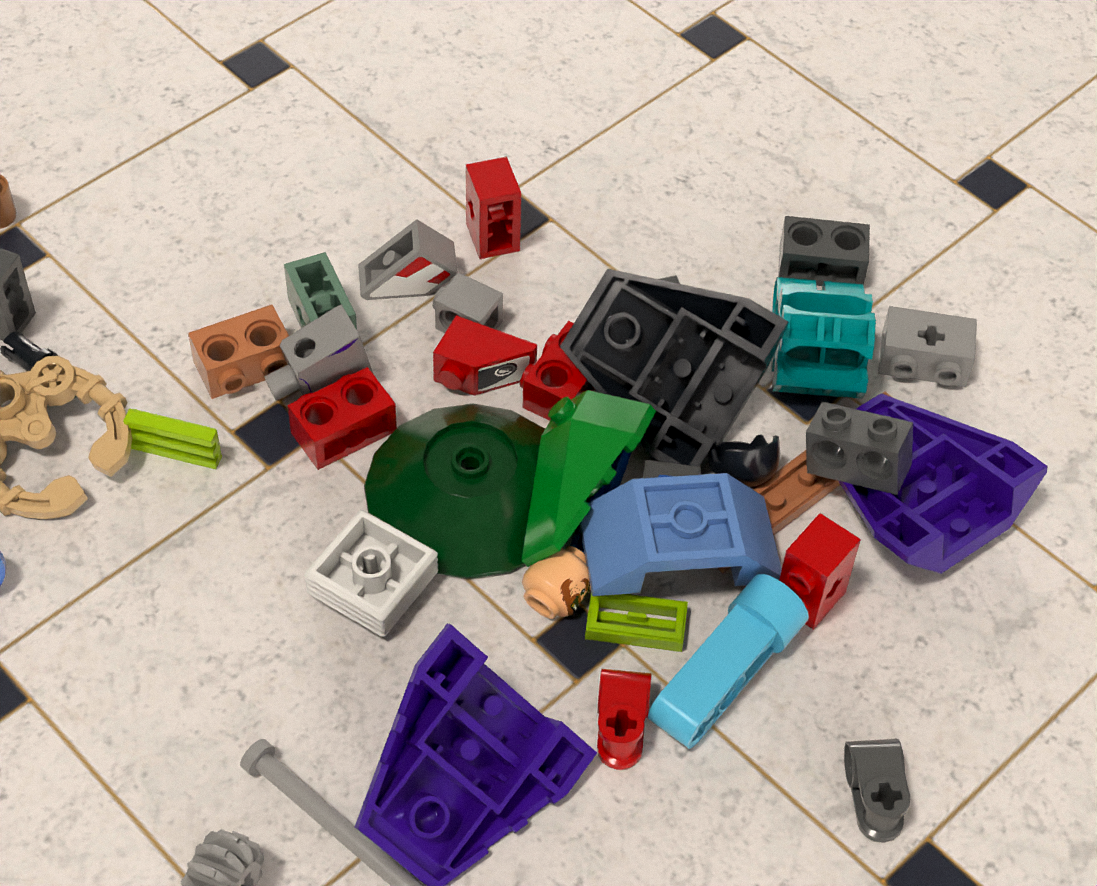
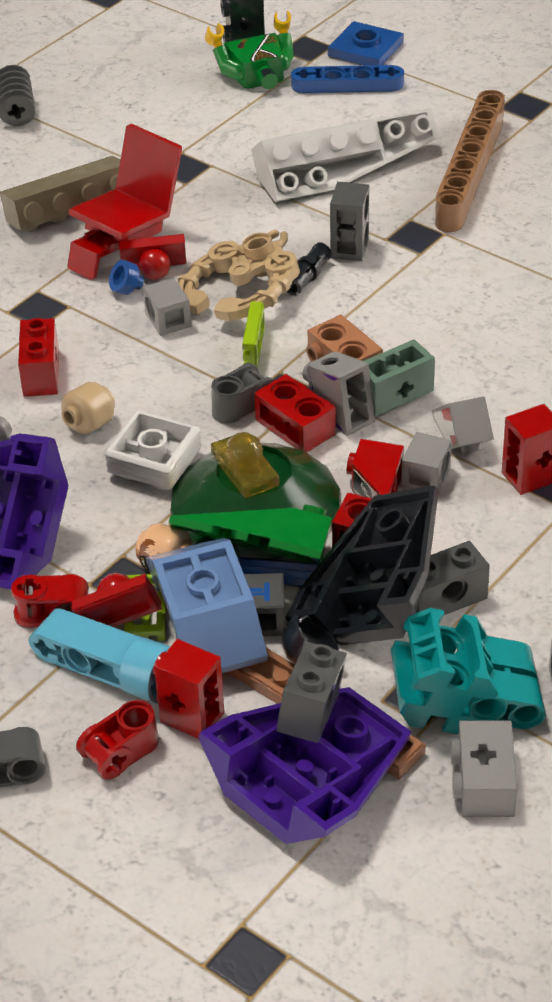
camera: 85 degrees right, 10 degrees down
(68, 526) = (167, 306): none -> light grey brick
(130, 688) = (38, 357): none -> red brick
(262, 638) = (87, 407): none -> tan head
(281, 470) = (234, 393): none -> dark grey piece
(469, 459) = (245, 464): none -> clear yellow tile
(644, 633) = (119, 600): none -> red tile
(866, 666) = (121, 738): none -> red piece

